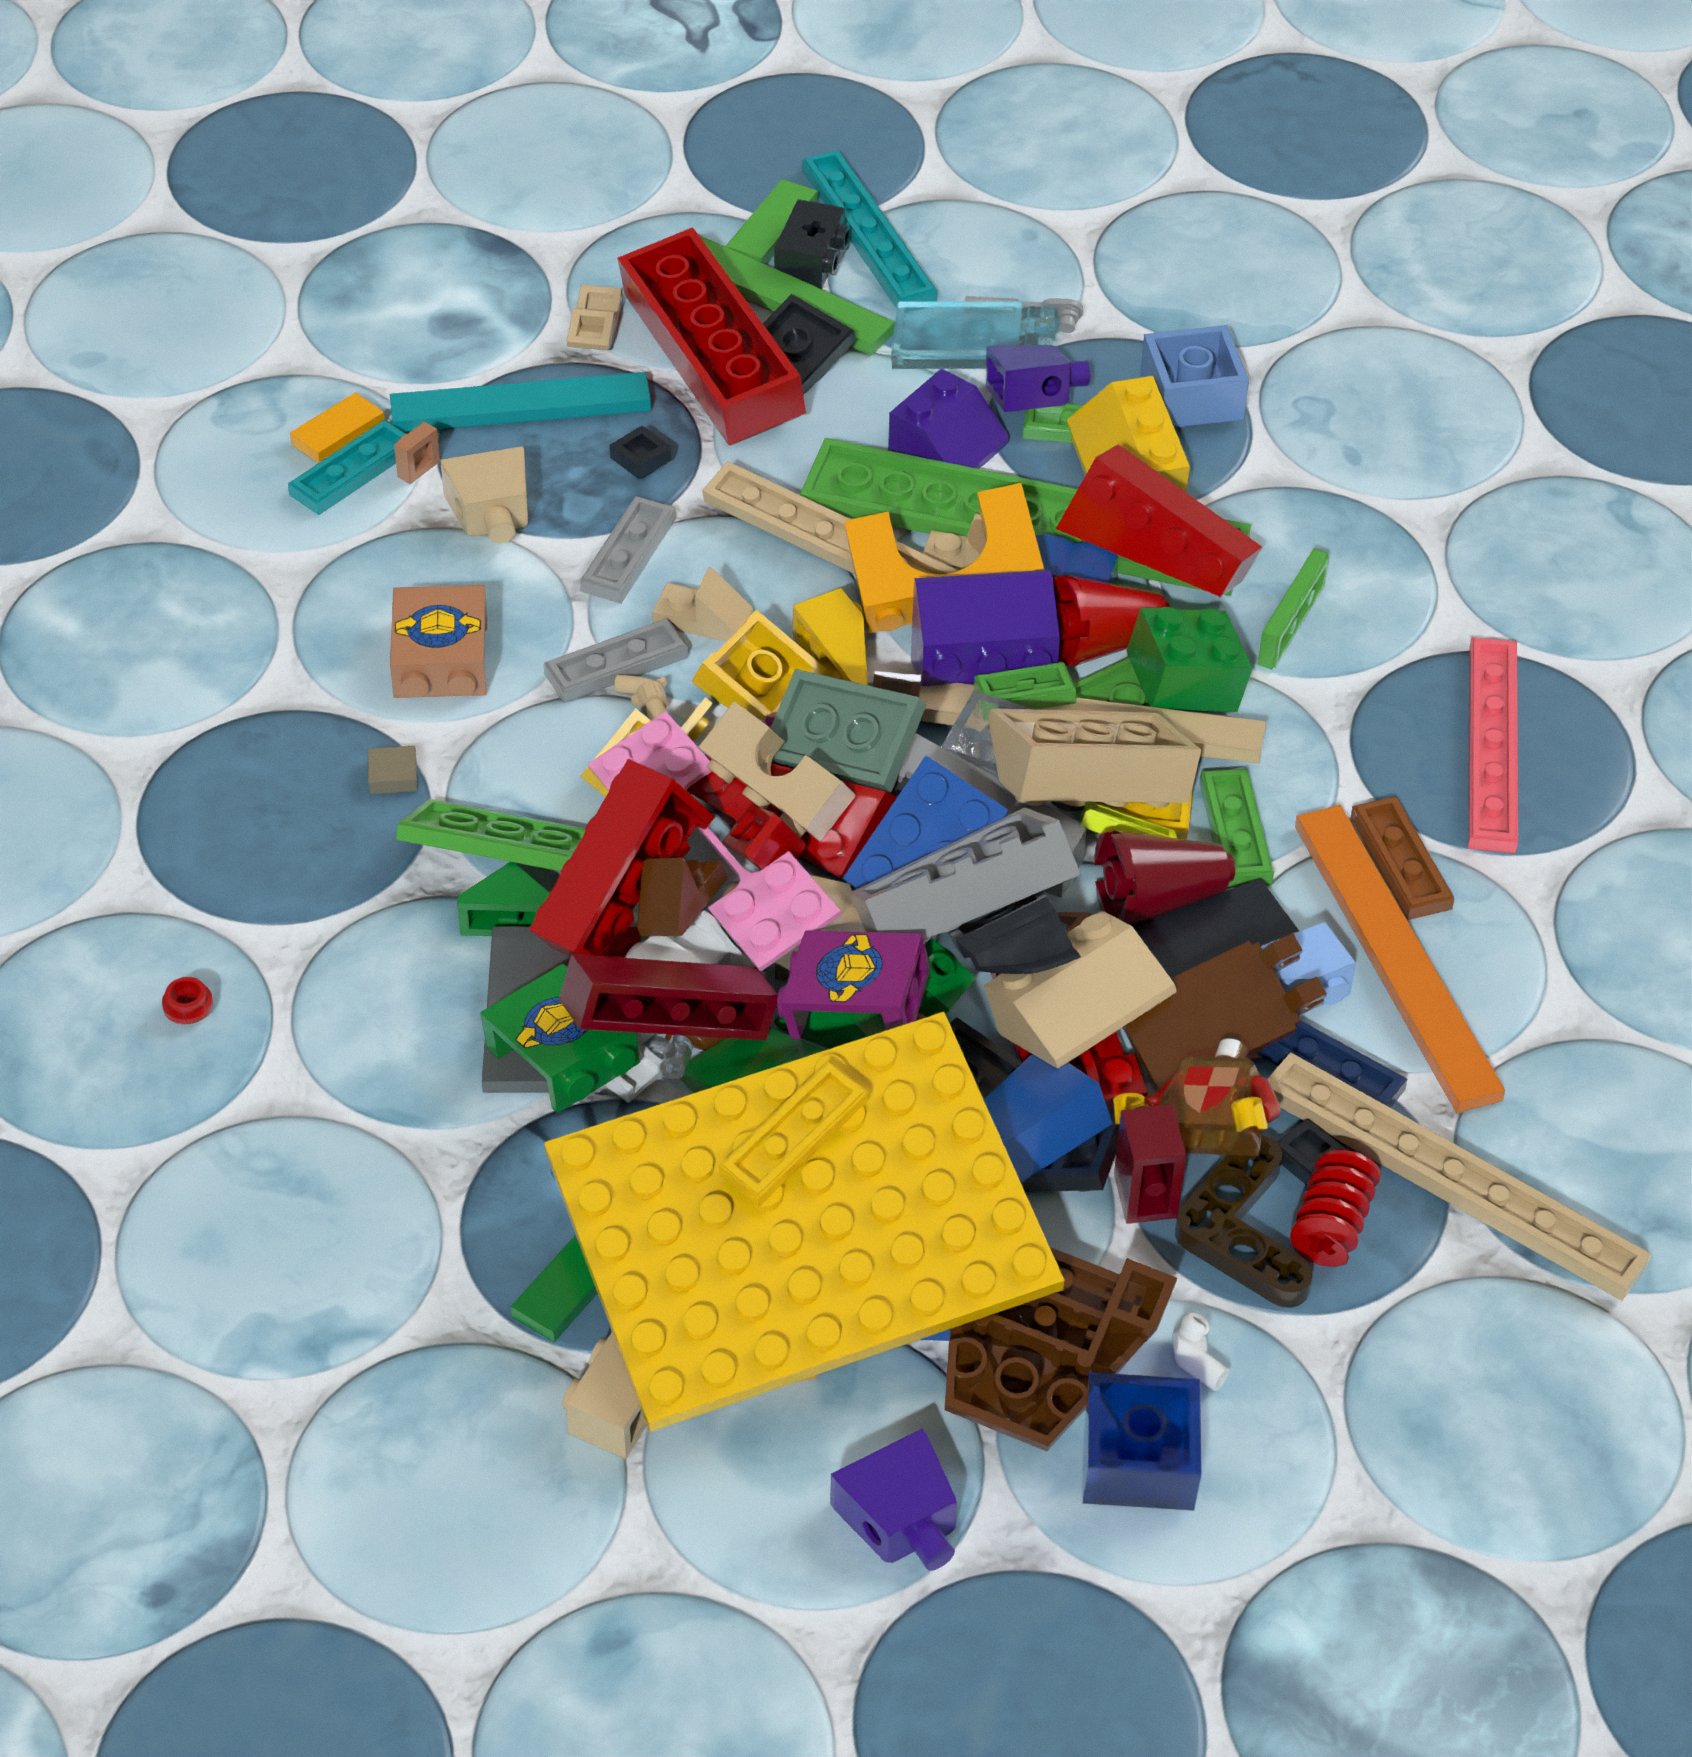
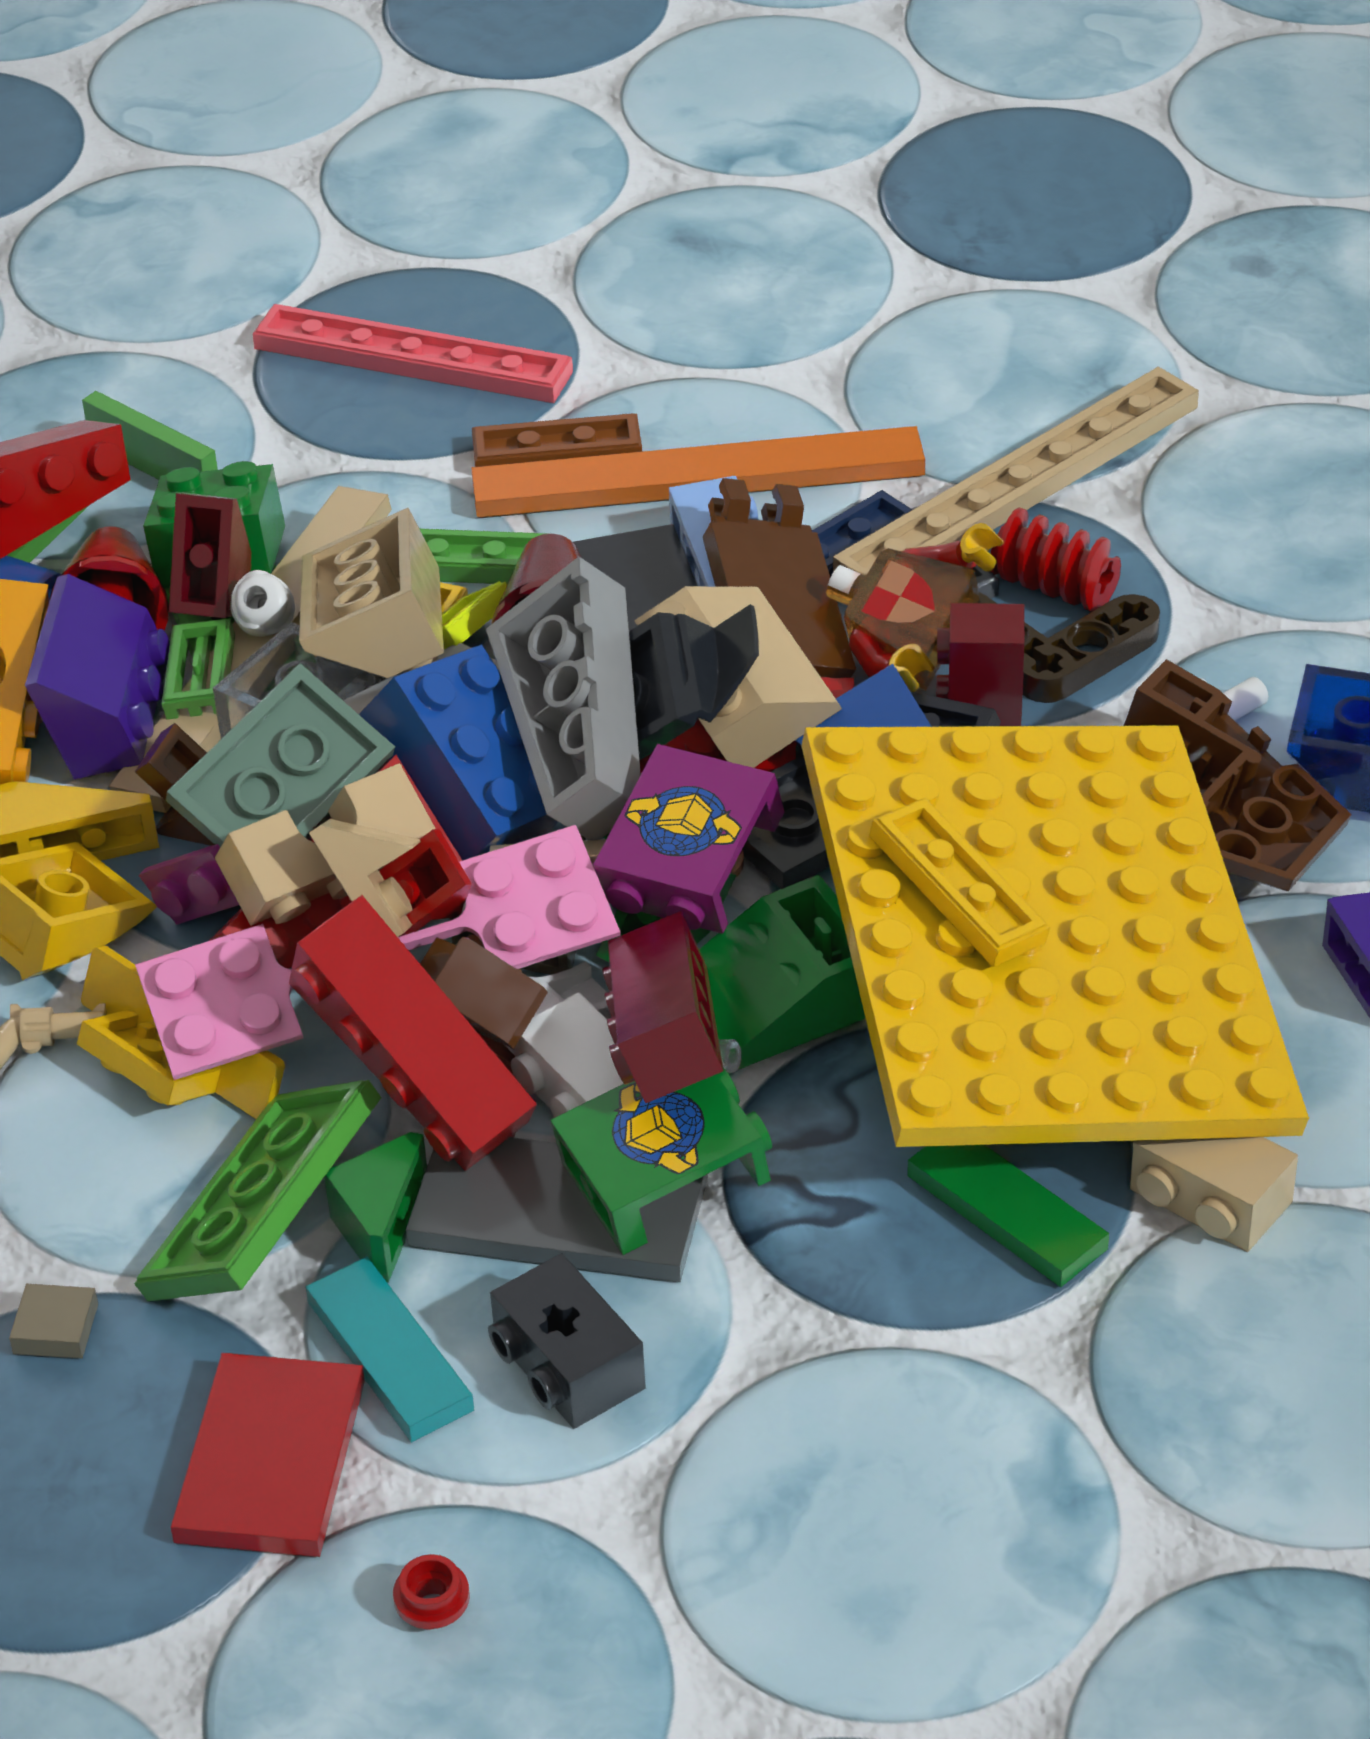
camera: 75 degrees left, 5 degrees down
(295, 900) = (269, 1455): none -> red tile
(391, 942) = (393, 1348): none -> teal tile
(399, 1028) = (566, 1341): none -> black brick
(730, 787) = (356, 856): none -> tan slope
(1086, 694) = (262, 604): none -> white piece
(1111, 658) = (207, 554): none -> dark red slope

